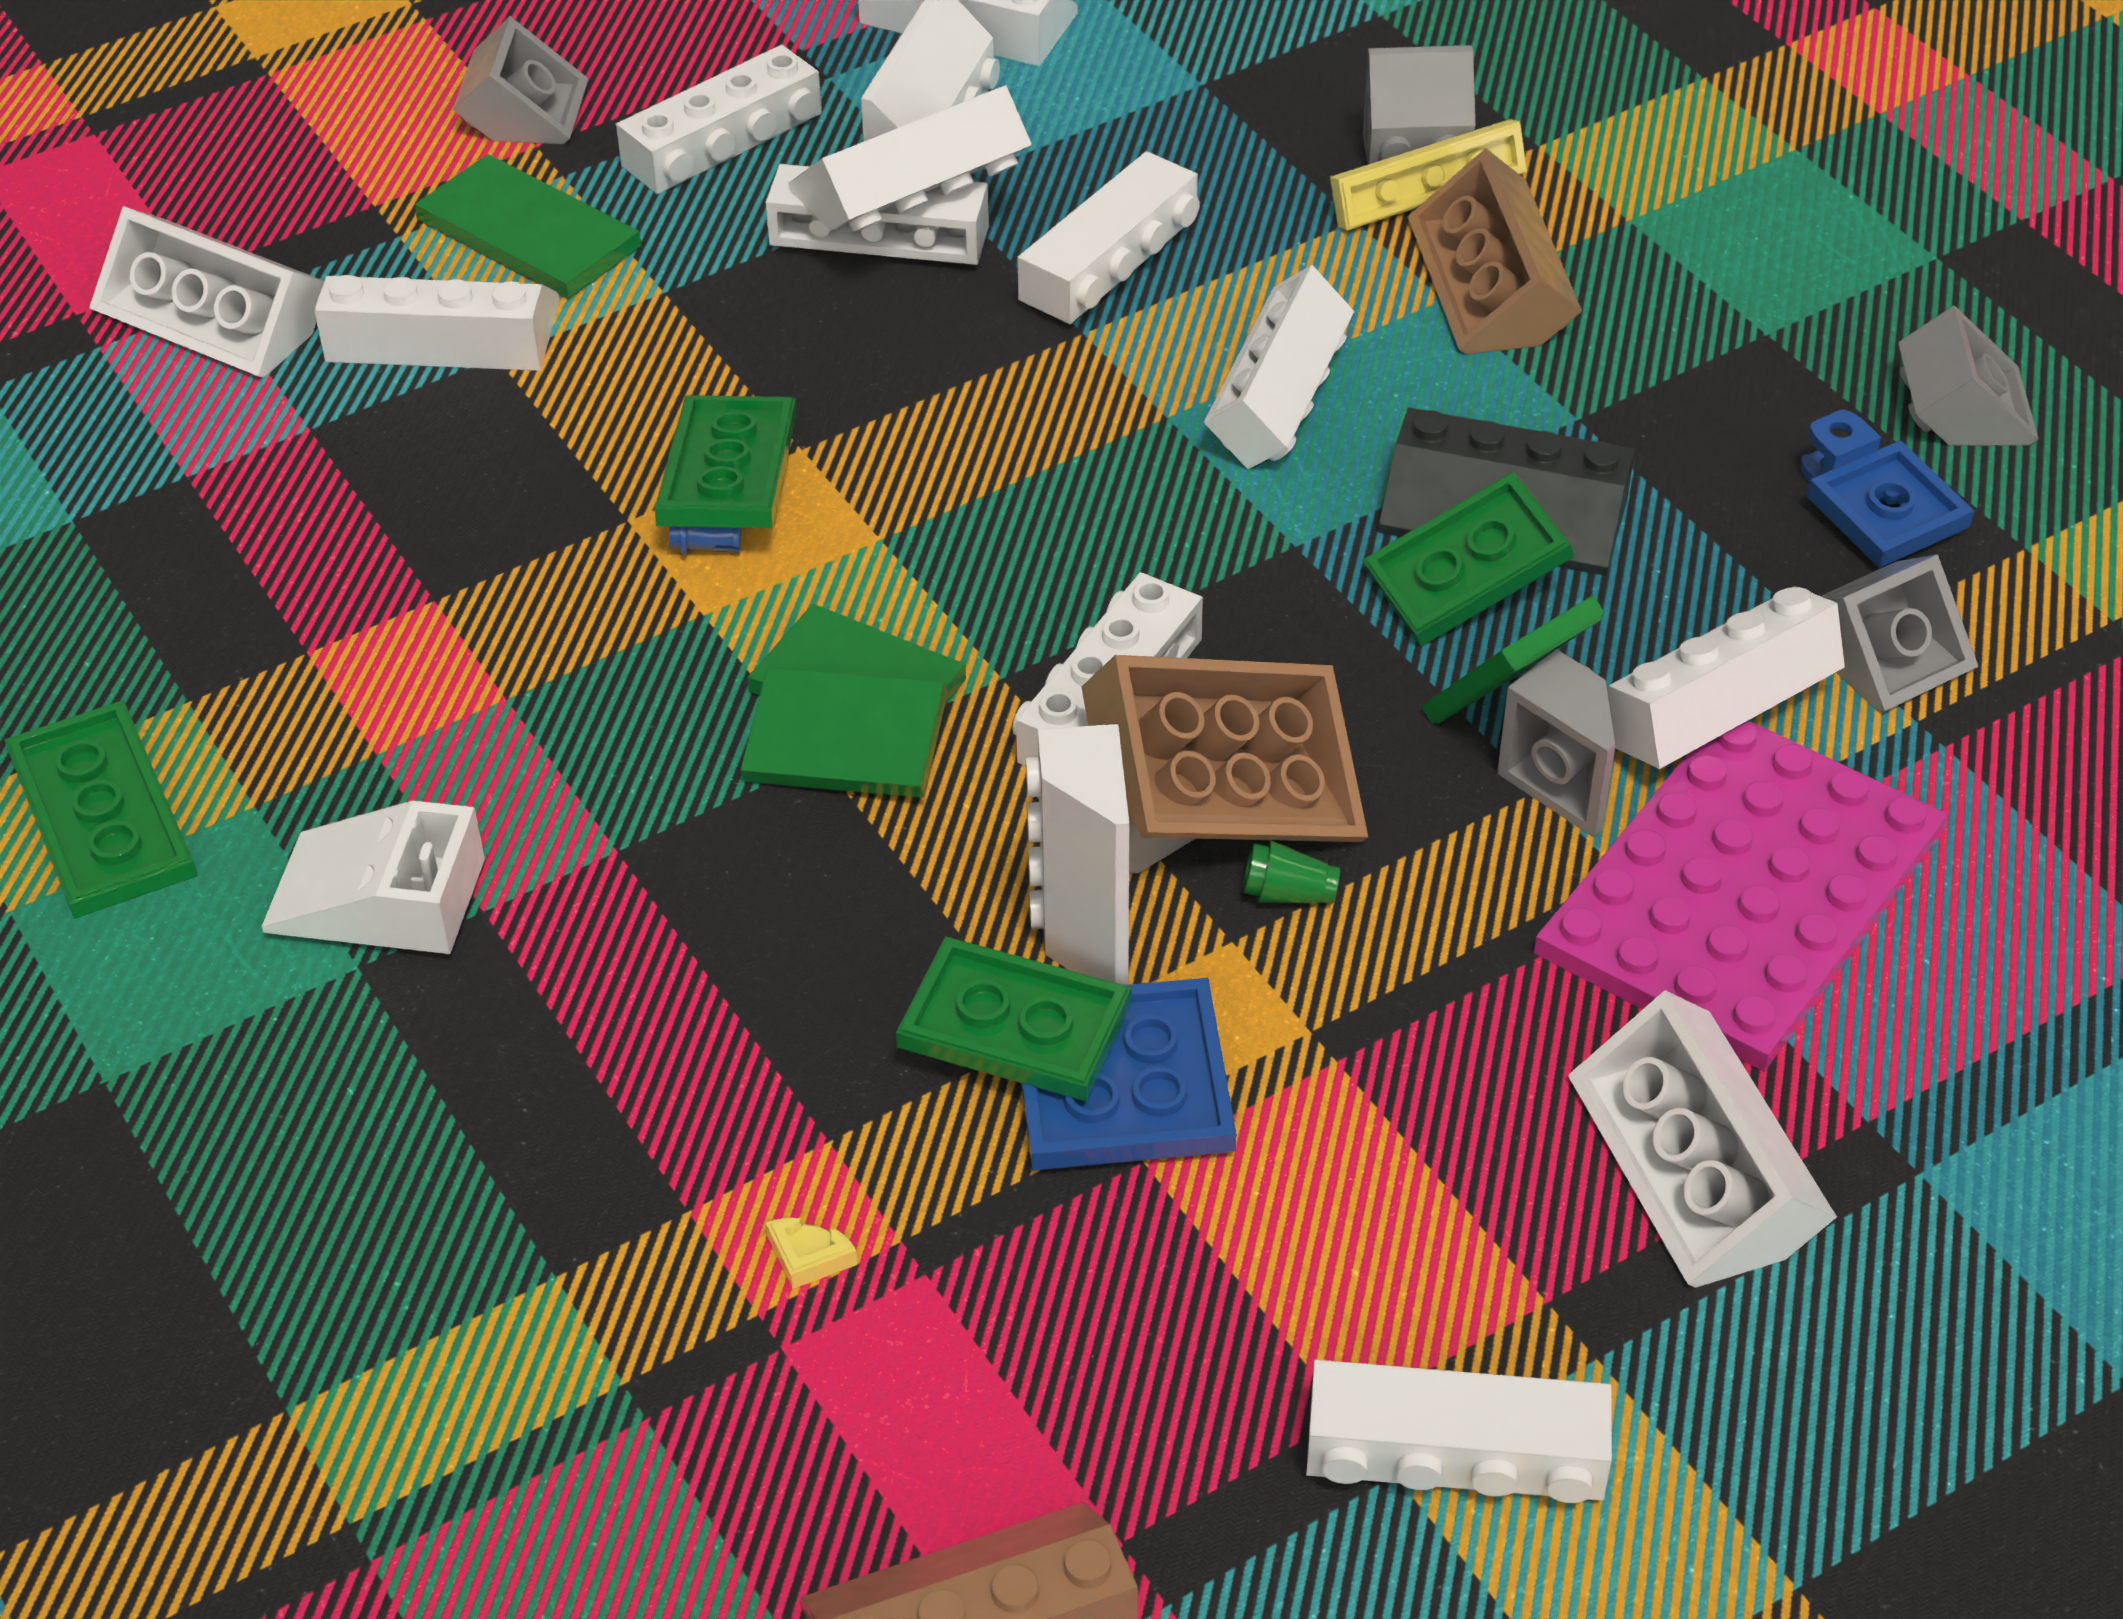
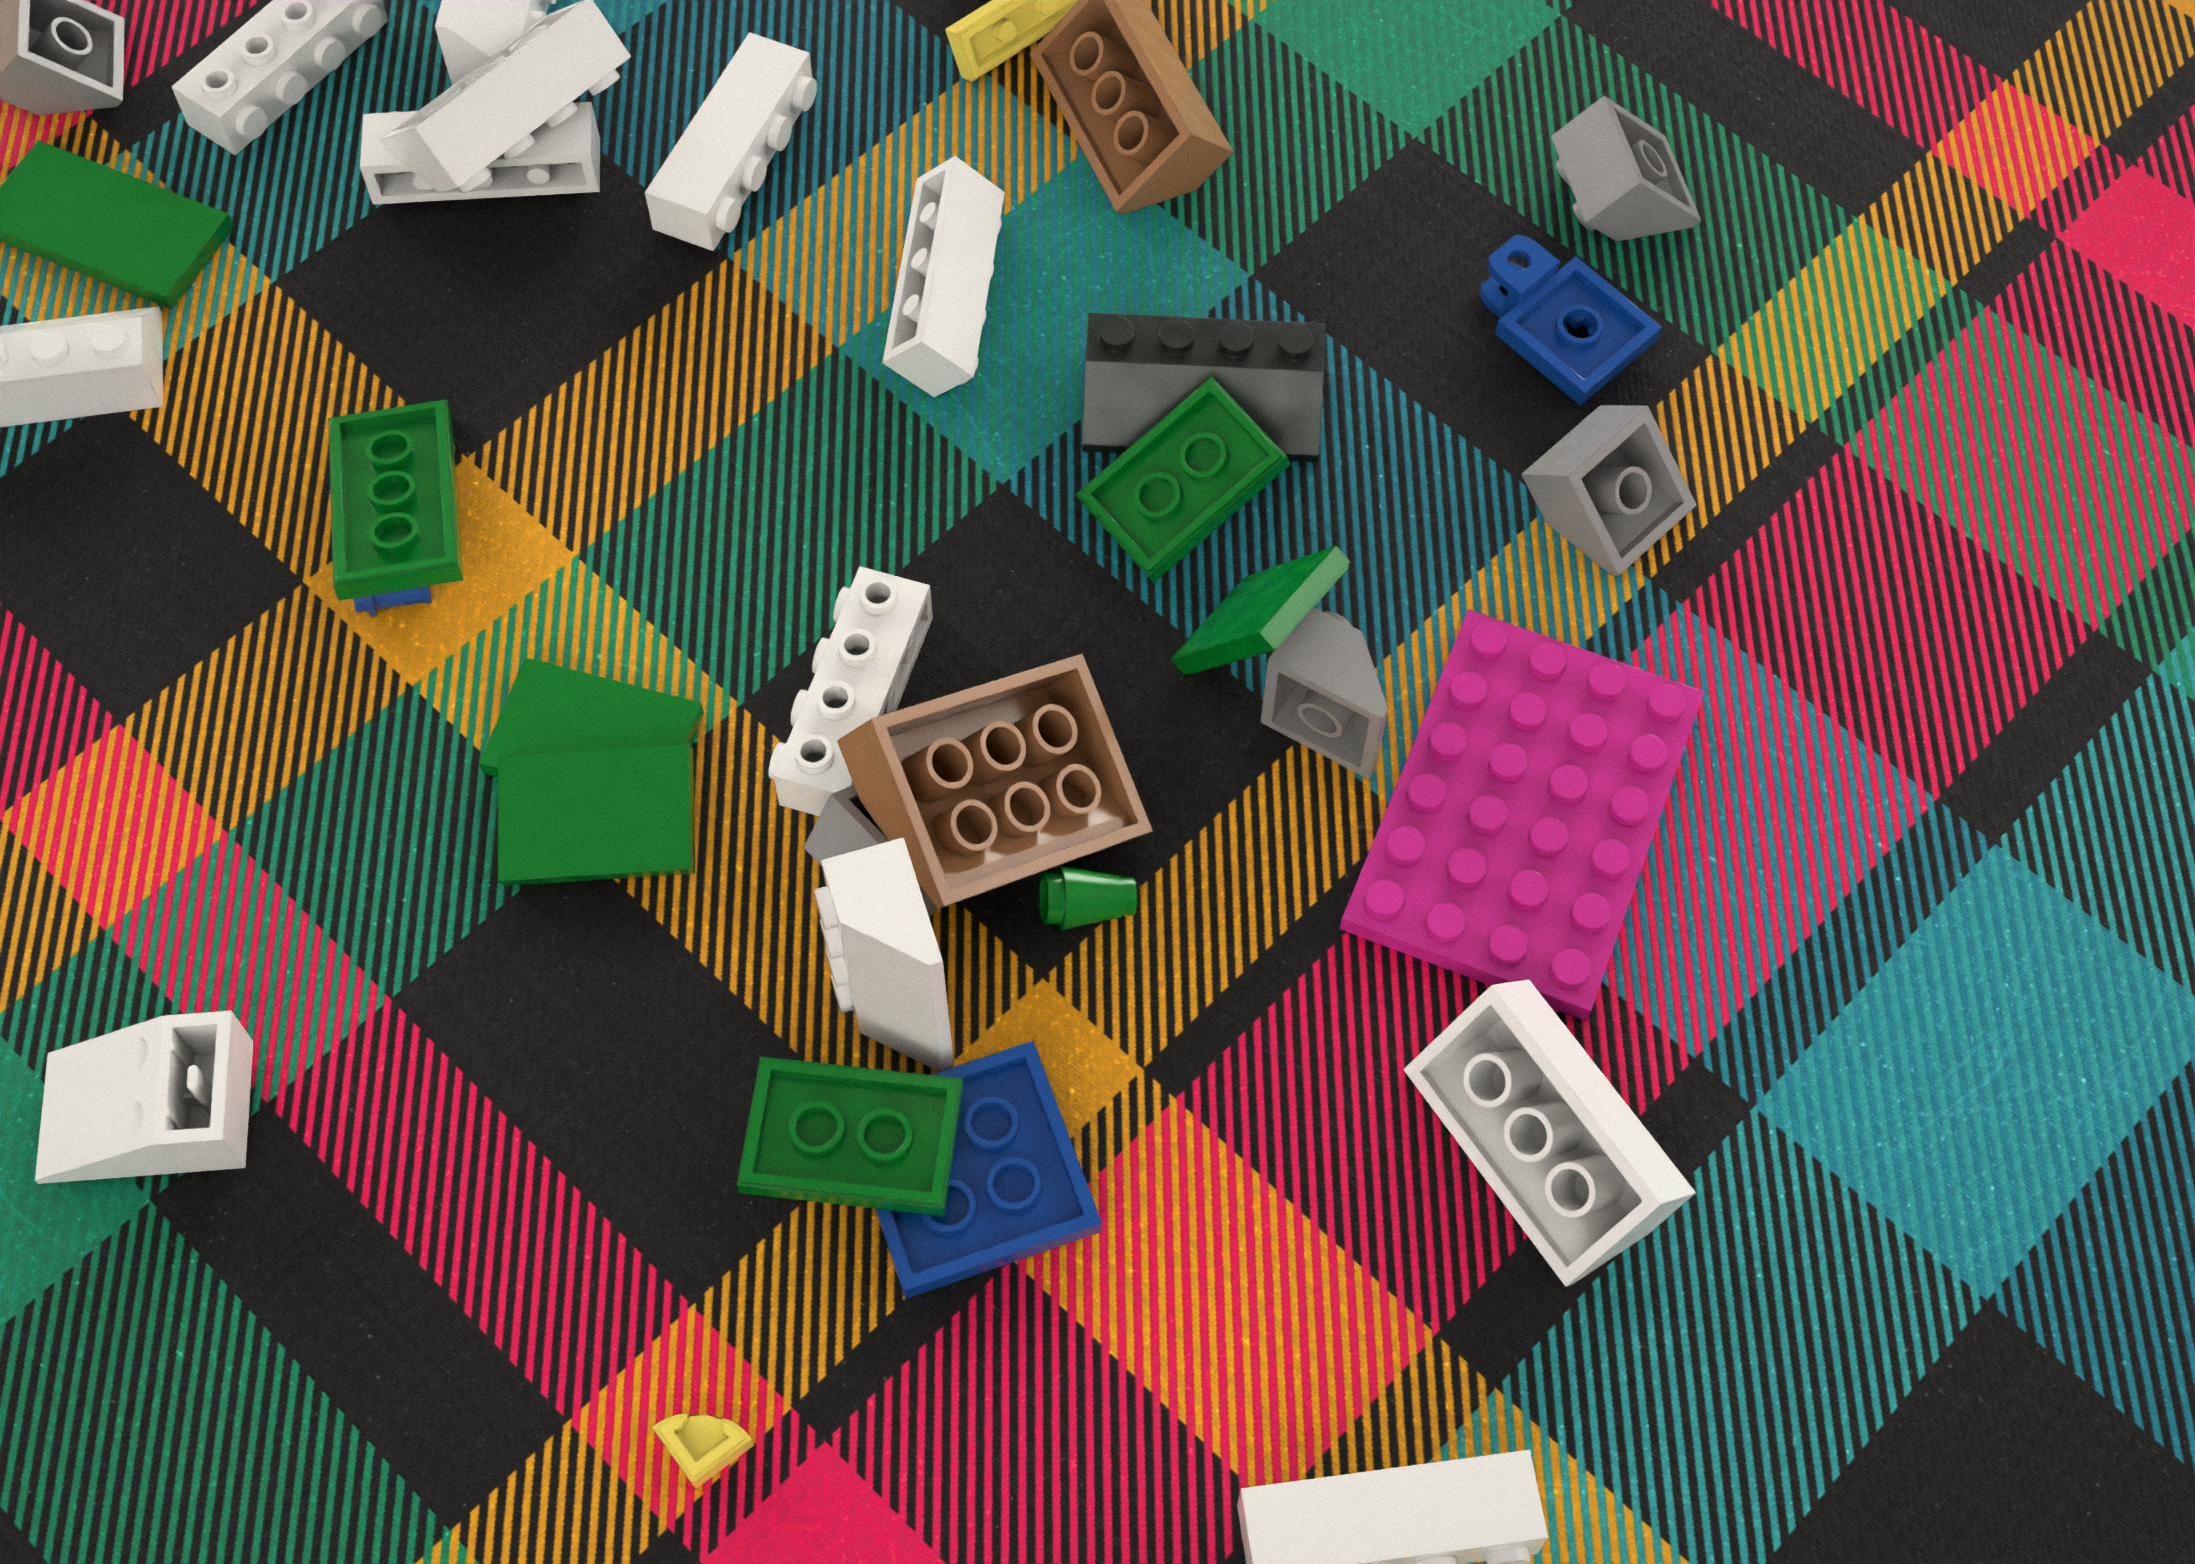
camera: 15 degrees left, 15 degrees up
(1726, 676) = (1466, 581): white slope -> none

